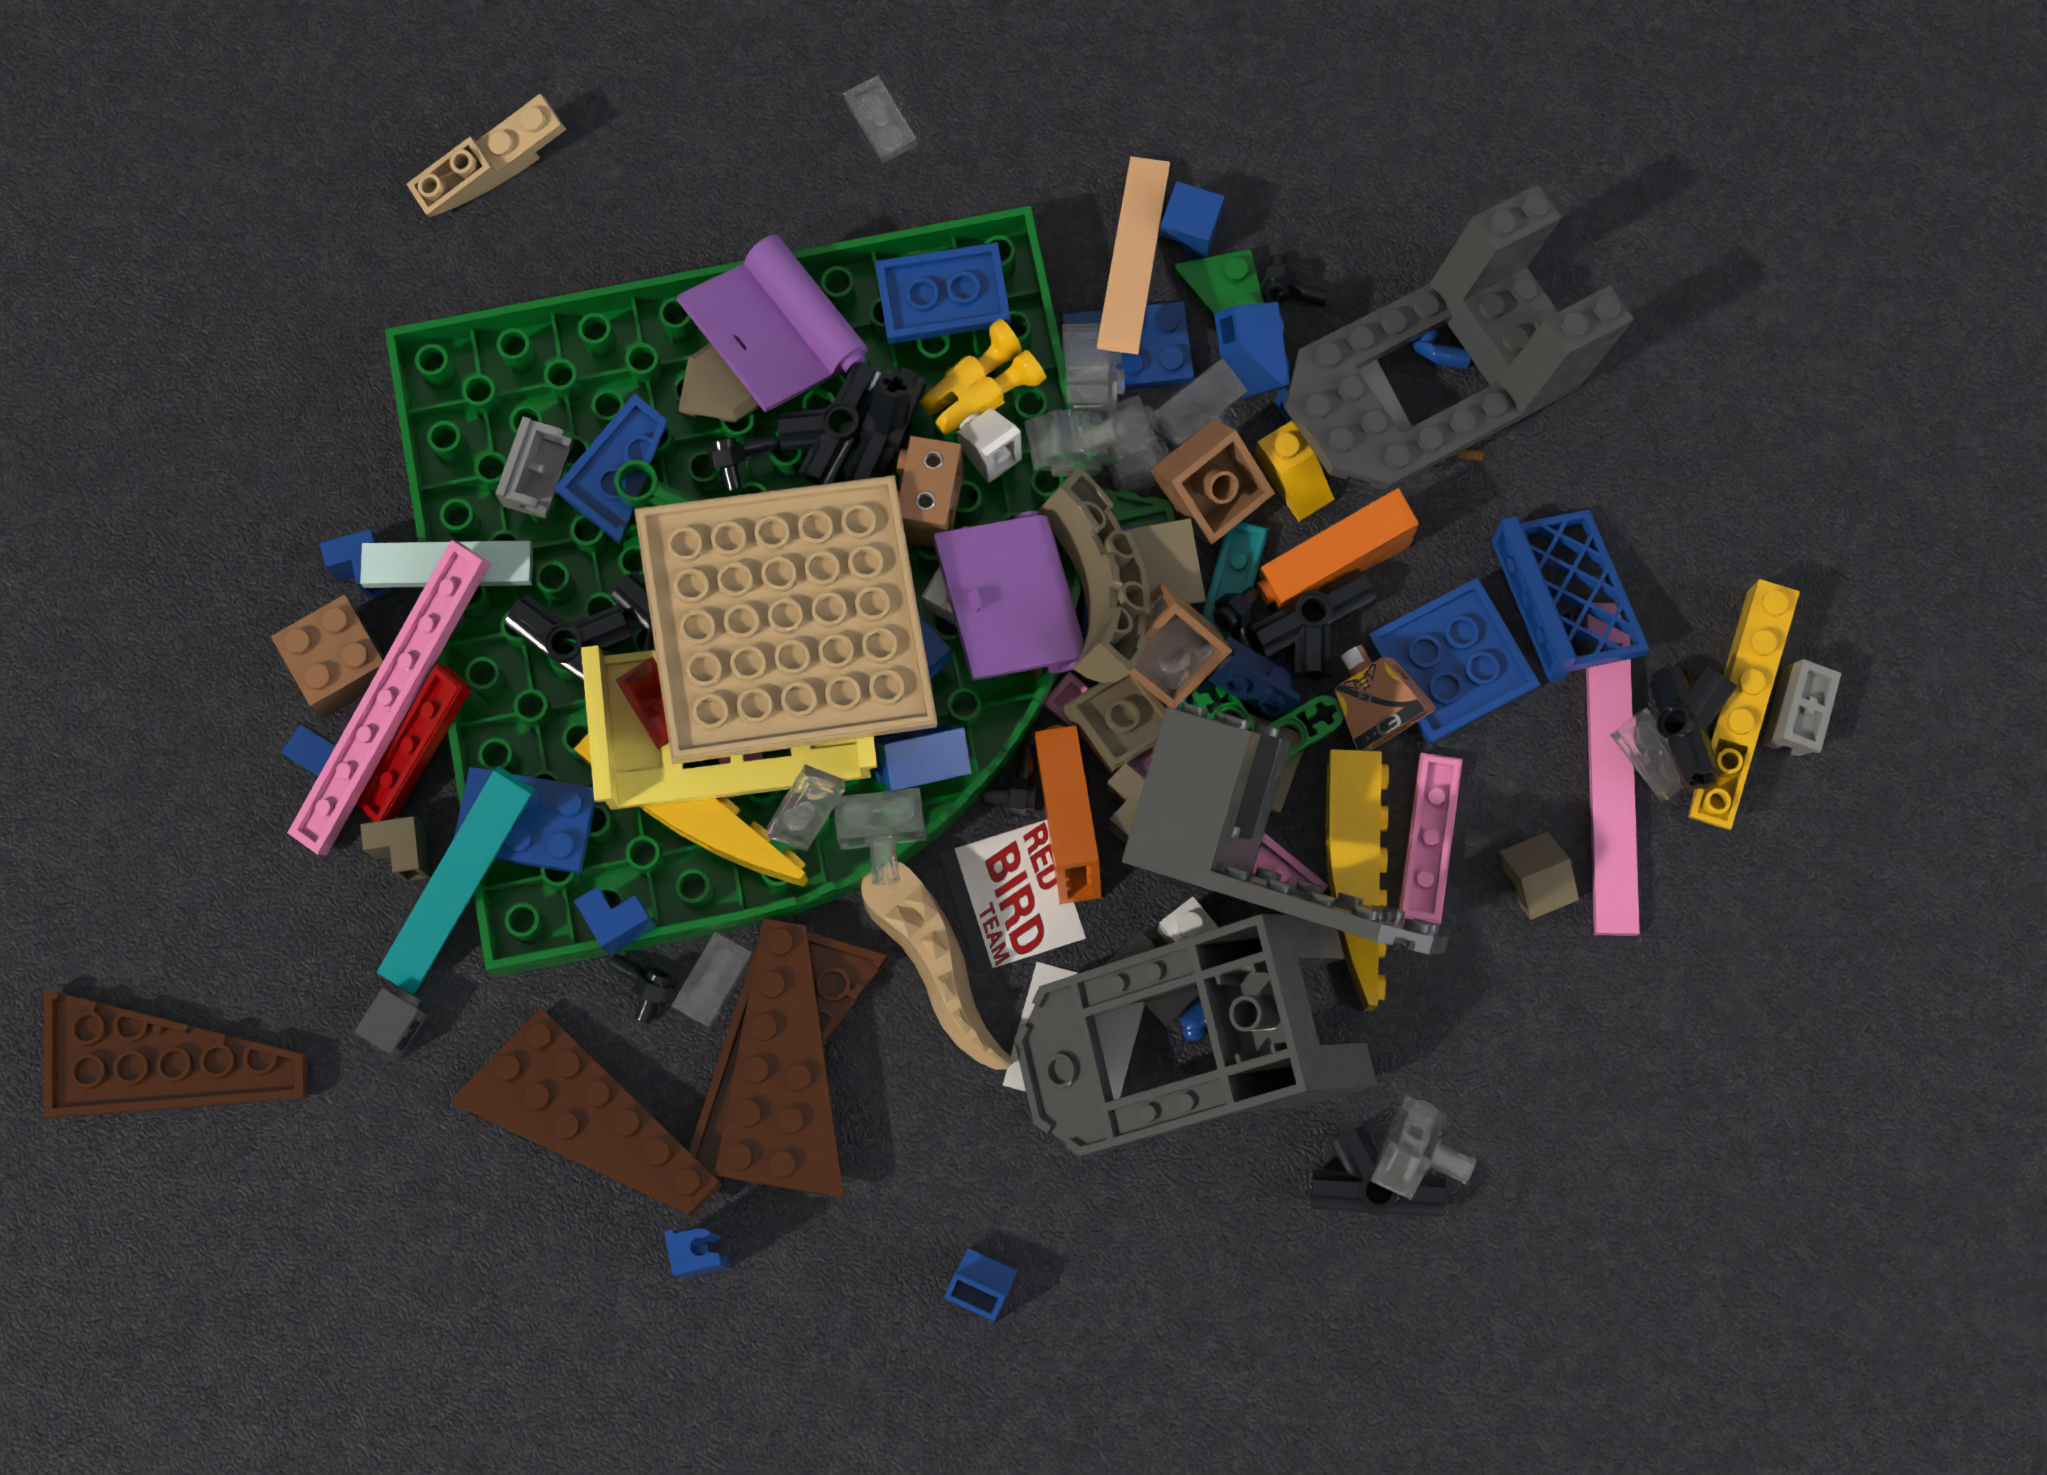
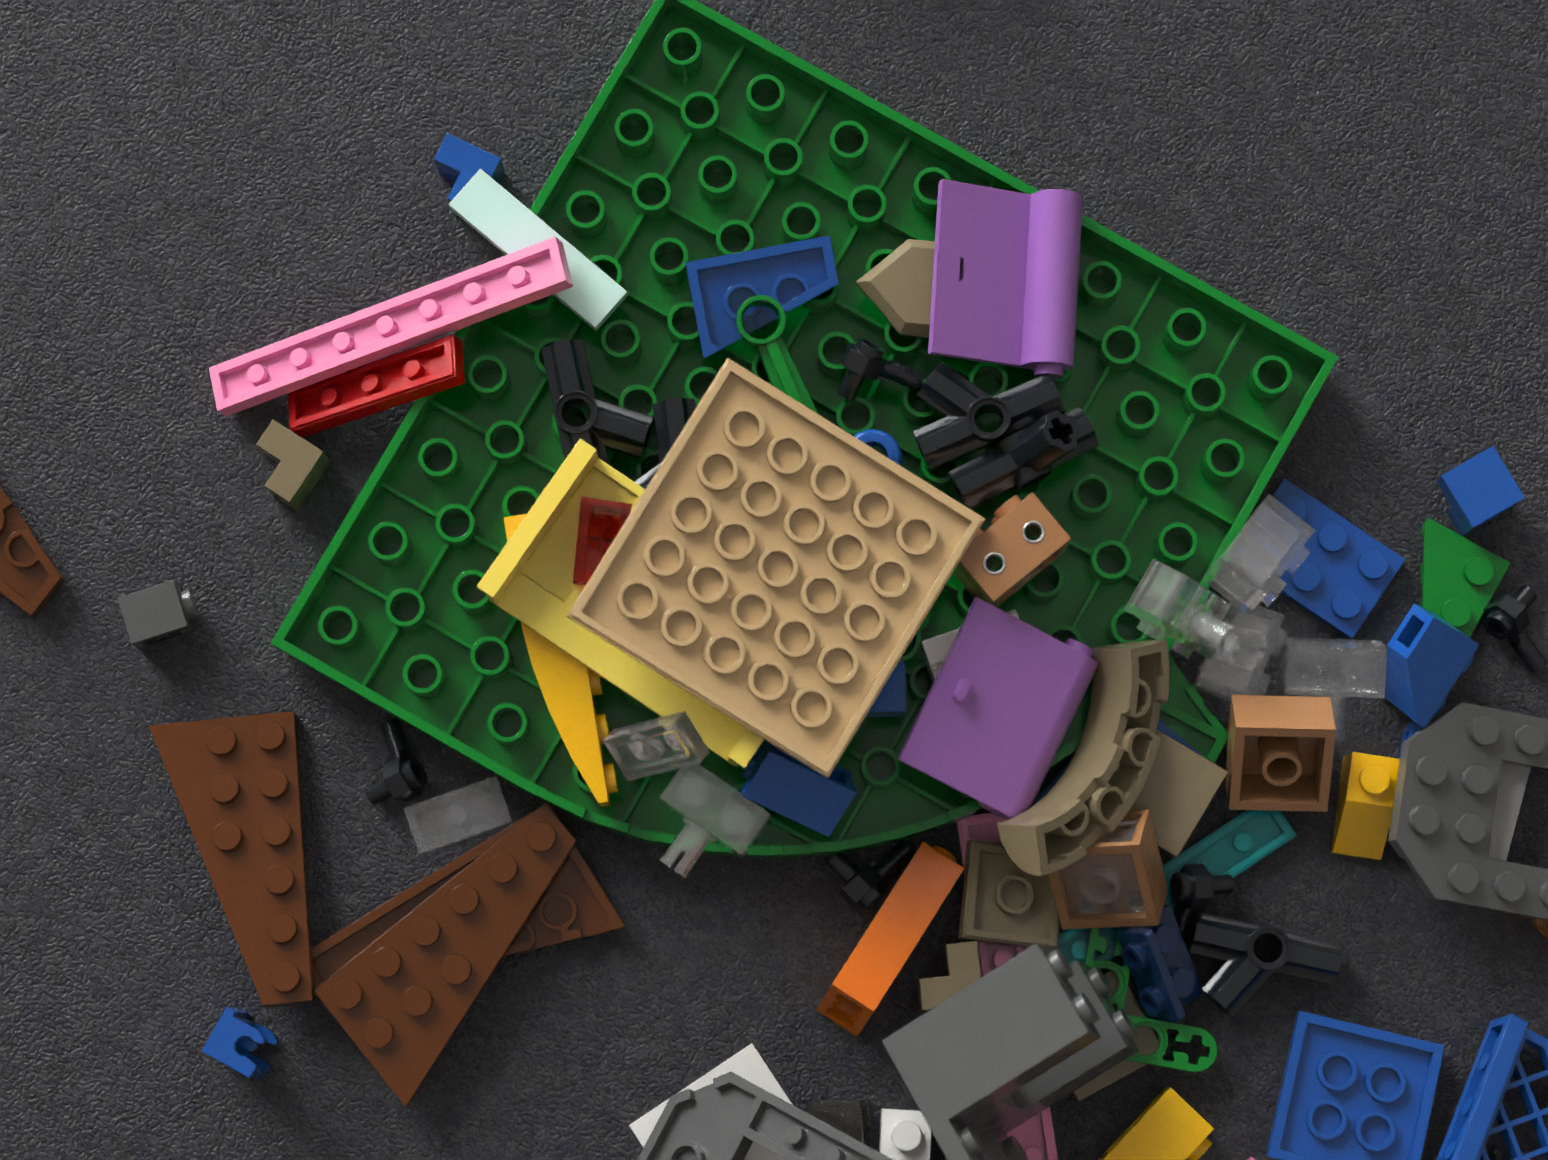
camera: 40 degrees right, 5 degrees up
(308, 750) = (289, 308): blue sticker -> none
(330, 655) = (375, 241): medium nougat brick -> none
(456, 880) = (310, 542): teal tile -> none
(534, 468) = (685, 227): light grey hinge -> none
(550, 829) = (412, 540): blue plate -> none
(615, 925) = (405, 701): blue piece -> none
(880, 119) = (1278, 152): clear plate -> none
(924, 933) = (674, 943): tan animal -> none
(942, 292) = (1185, 374): blue plate -> none
(970, 382) = (1135, 482): yellow piece -> none
(990, 443) = (1105, 550): white slope -> none
(1009, 897) = (778, 965): sticker -> none
(1133, 256) = (1393, 482): light nougat tile -> none
(1351, 544) = (1336, 914): orange slope -> none
(1379, 699) = (1255, 1078): nougat torso -> none

